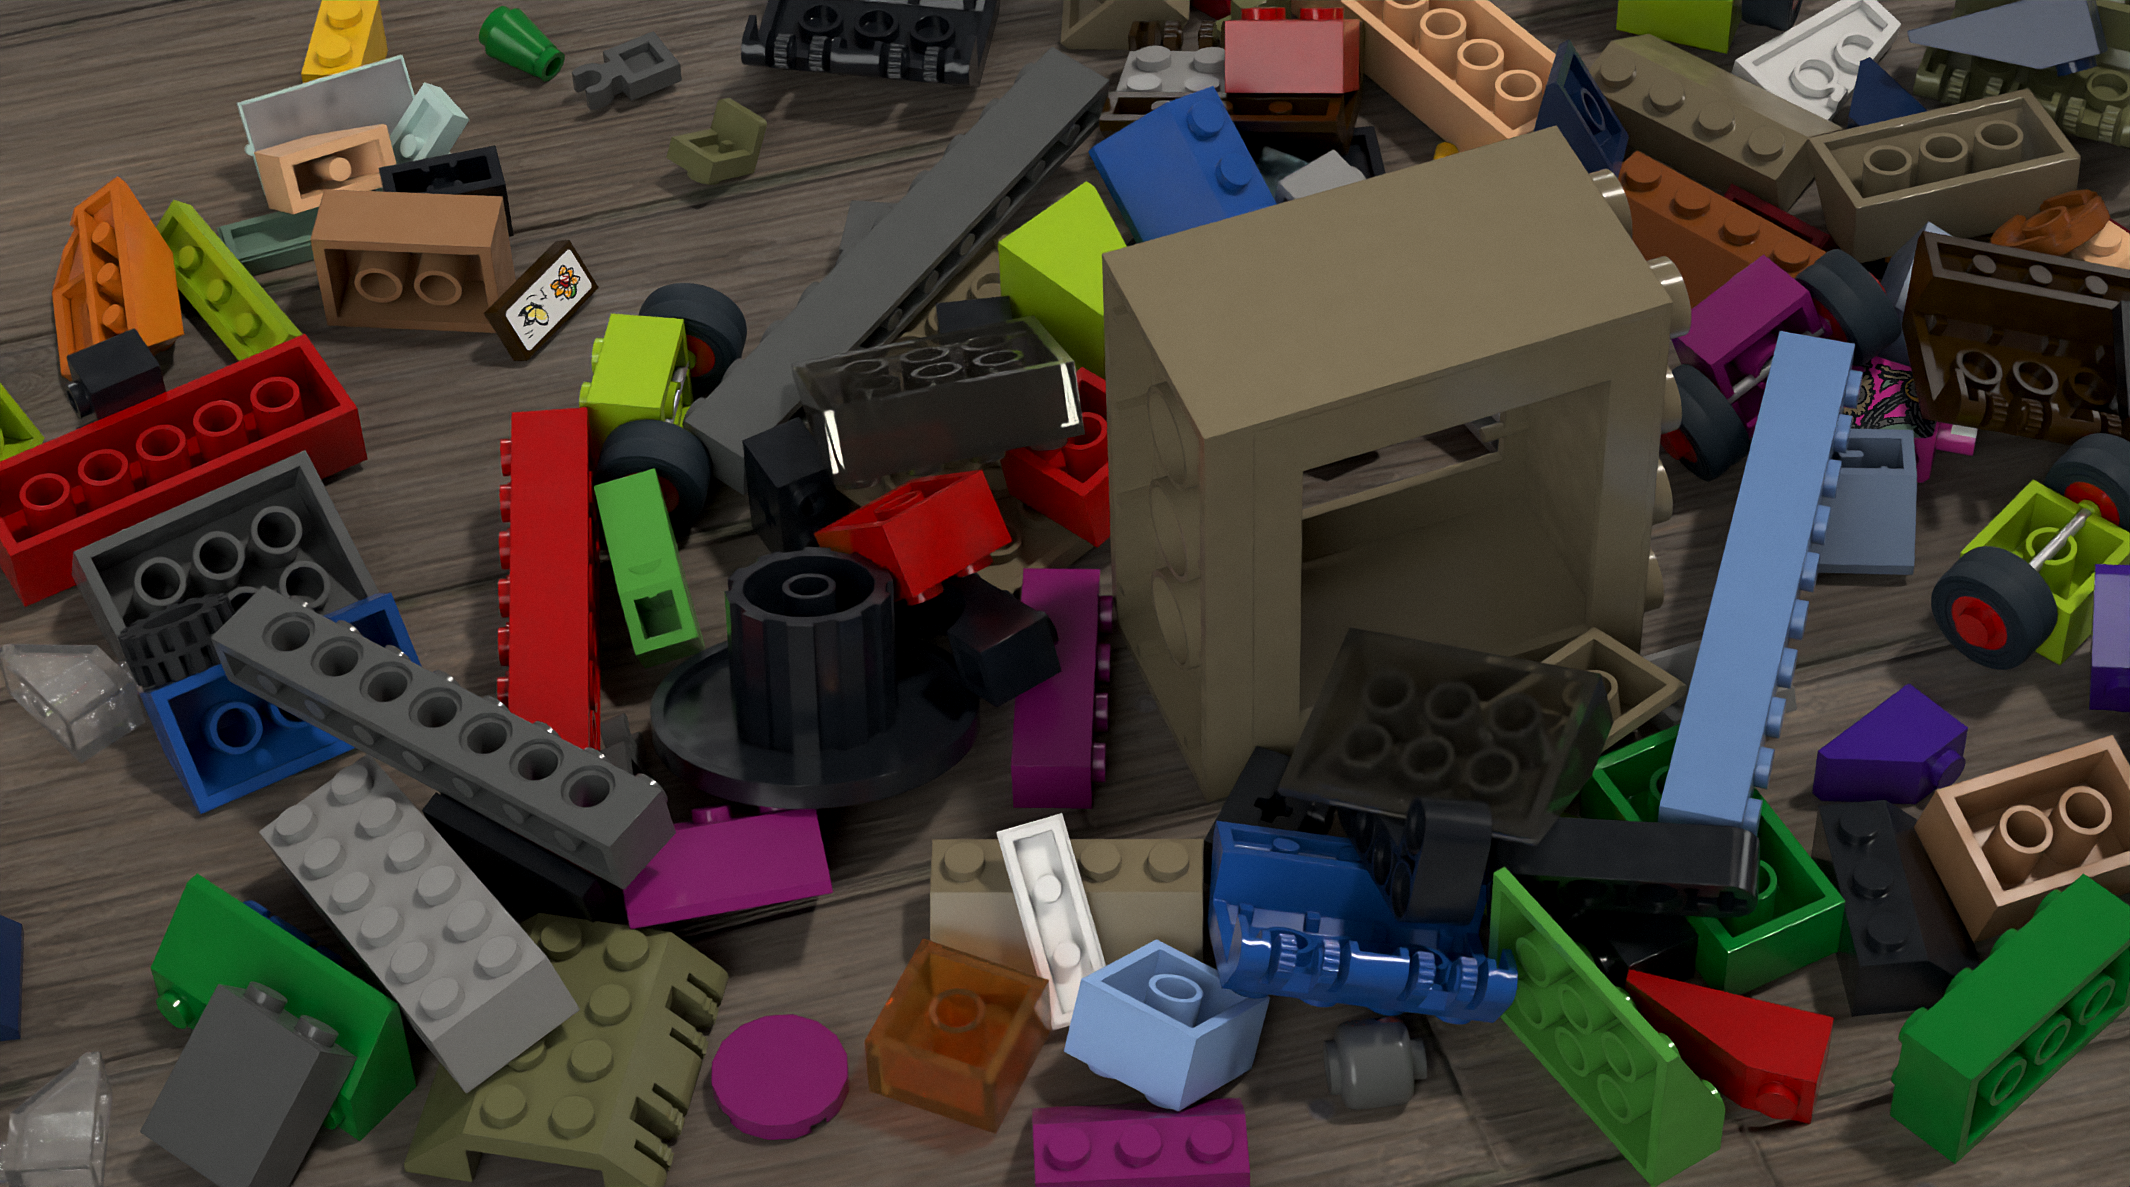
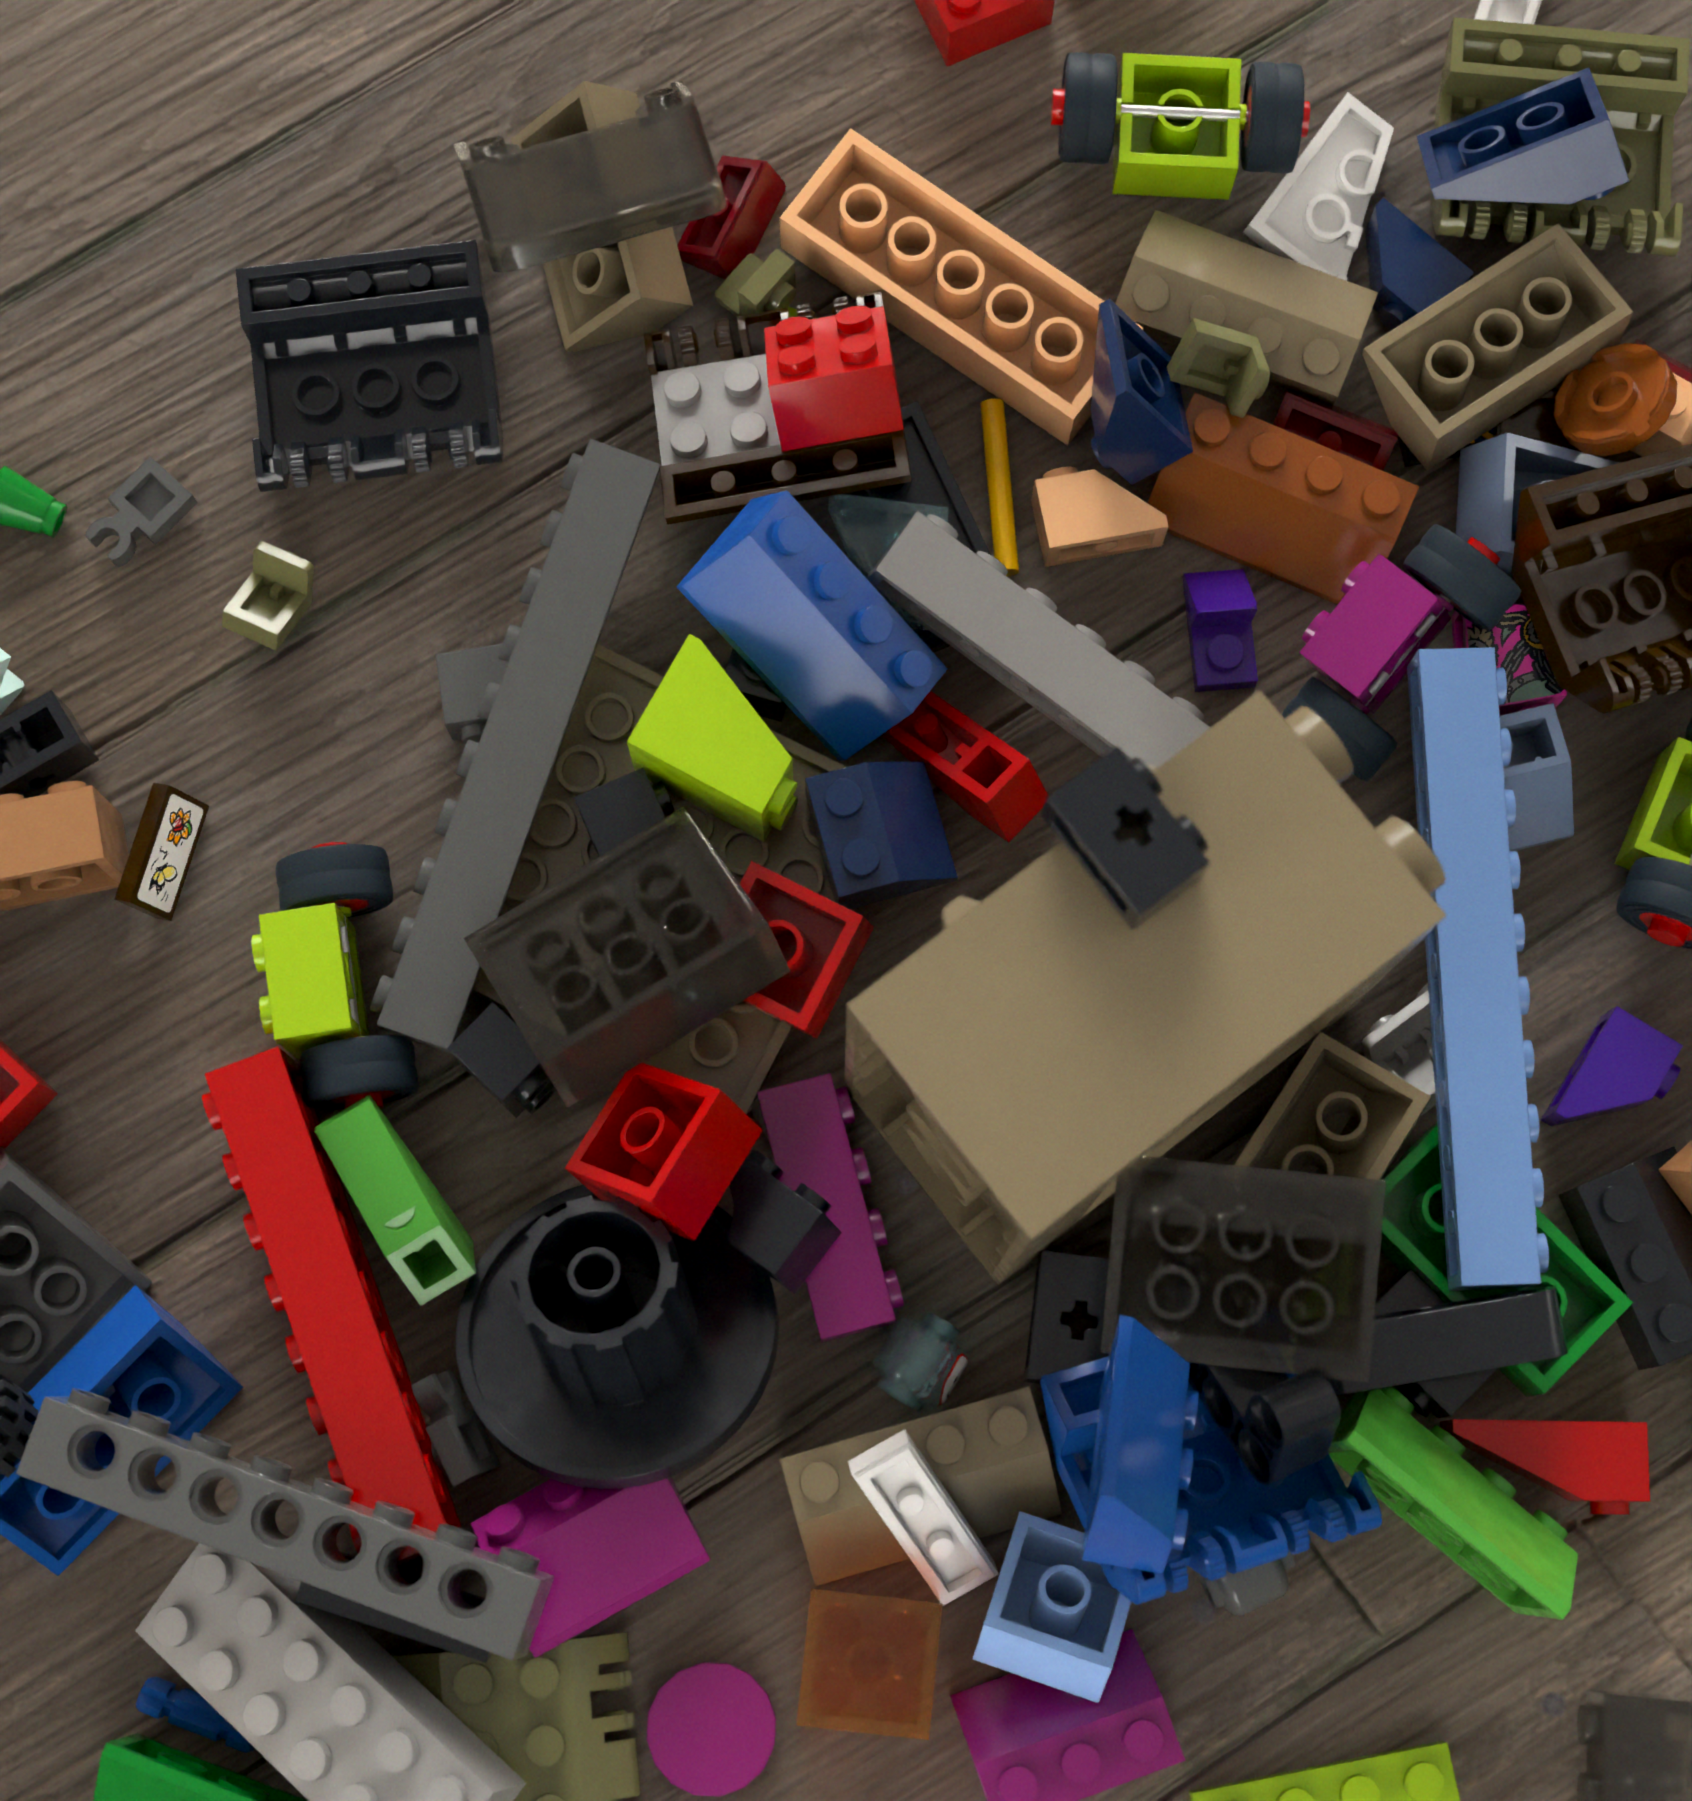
camera: 20 degrees left, 30 degrees up
(1108, 811) = (920, 1361): none -> clear light blue head
(1279, 833) = (1140, 1453): none -> blue slope
(1393, 175) = (1130, 875): none -> black brick
(1664, 124) = (1221, 363): none -> olive bracket

